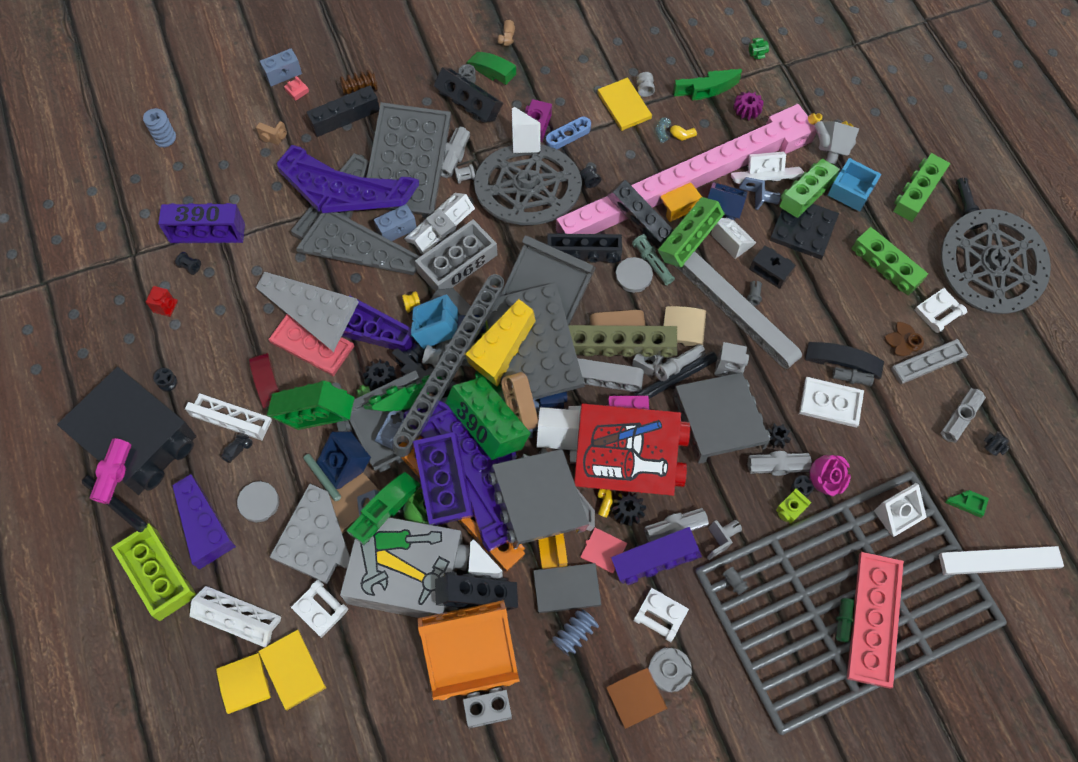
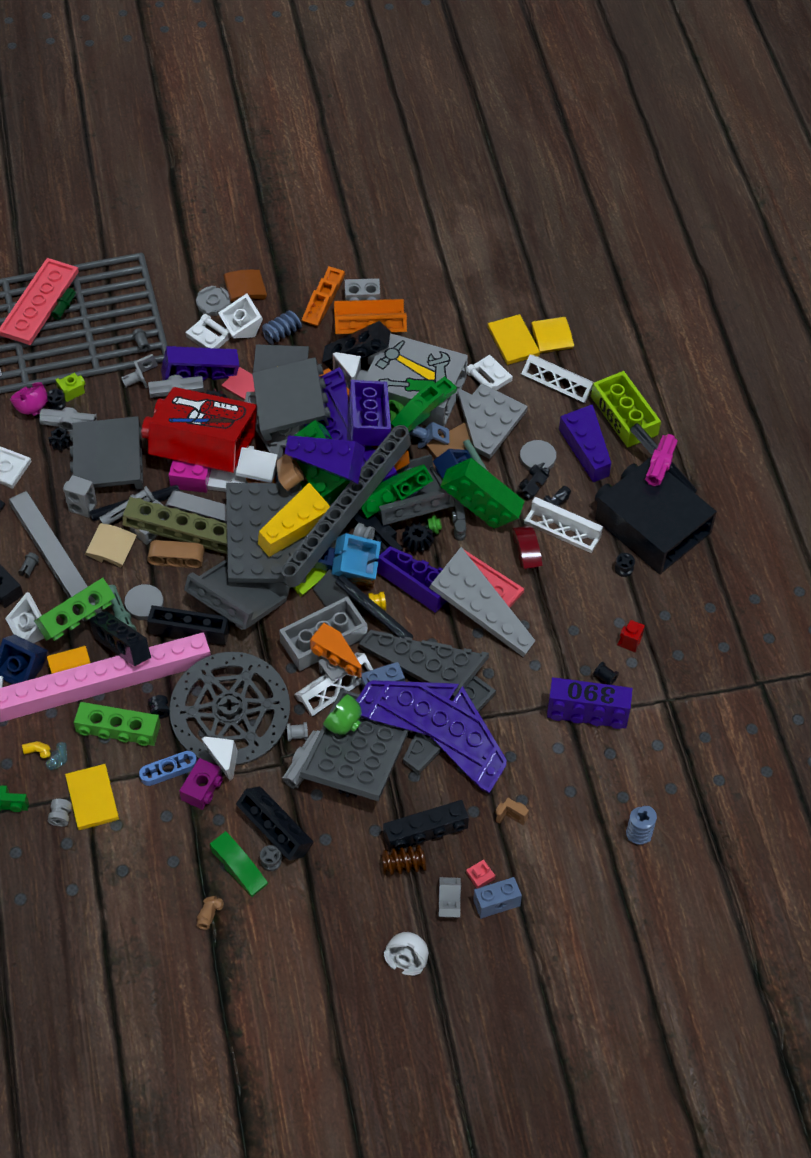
camera: 170 degrees left, 10 degrees down
(264, 461) = (528, 485): none -> black hinge
(320, 66) = (449, 897): none -> light grey slope
(347, 19) = (407, 952): none -> white cylinder
(409, 284) = (372, 607): none -> black axle
(422, 165) = (344, 717): none -> bright green cylinder
(442, 225) = (332, 646): none -> orange slope
(478, 393) = (330, 455): none -> dark purple wedge
(535, 697) = (323, 296): none -> orange slope
(622, 157) = (110, 716): none -> bright green brick
(628, 633) = (241, 318): none -> white slope

